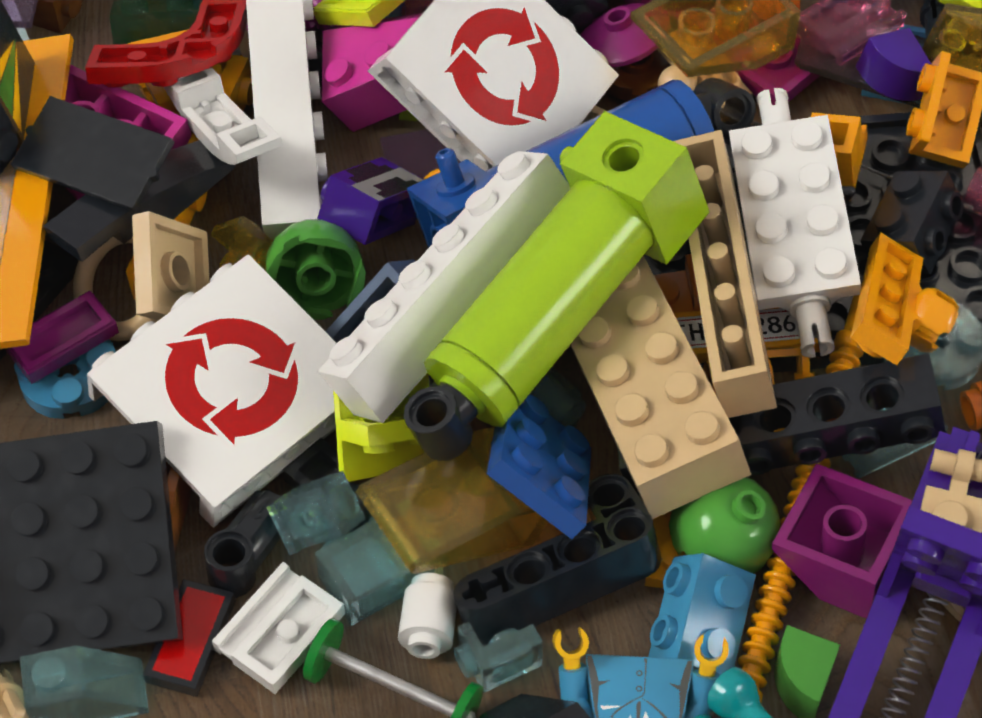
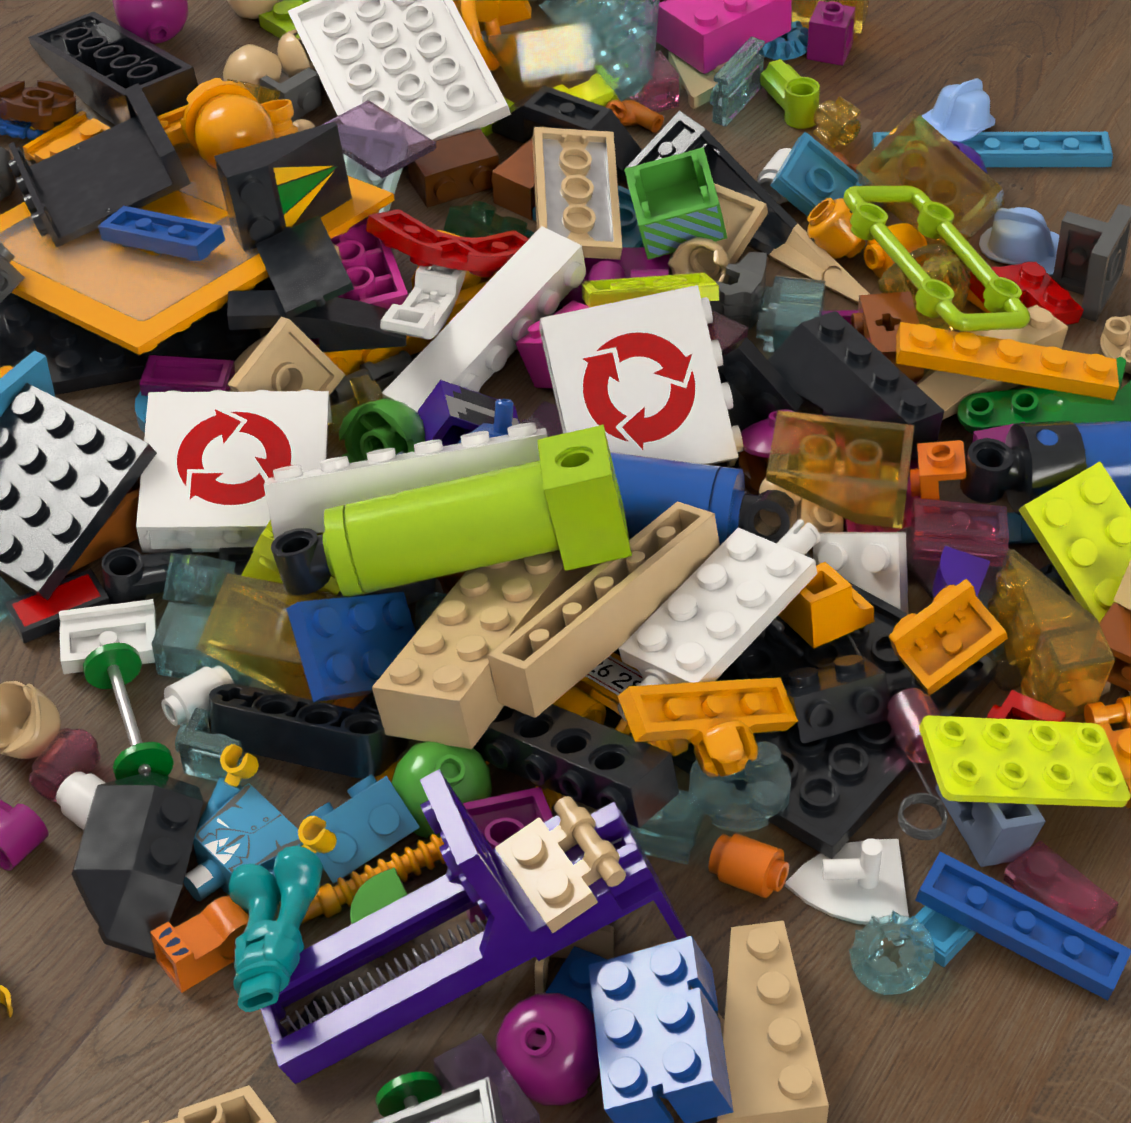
camera: 45 degrees right, 10 degrees down
(218, 209) = (382, 372): none -> dark grey pin
(811, 88) = (869, 561): none -> white wing

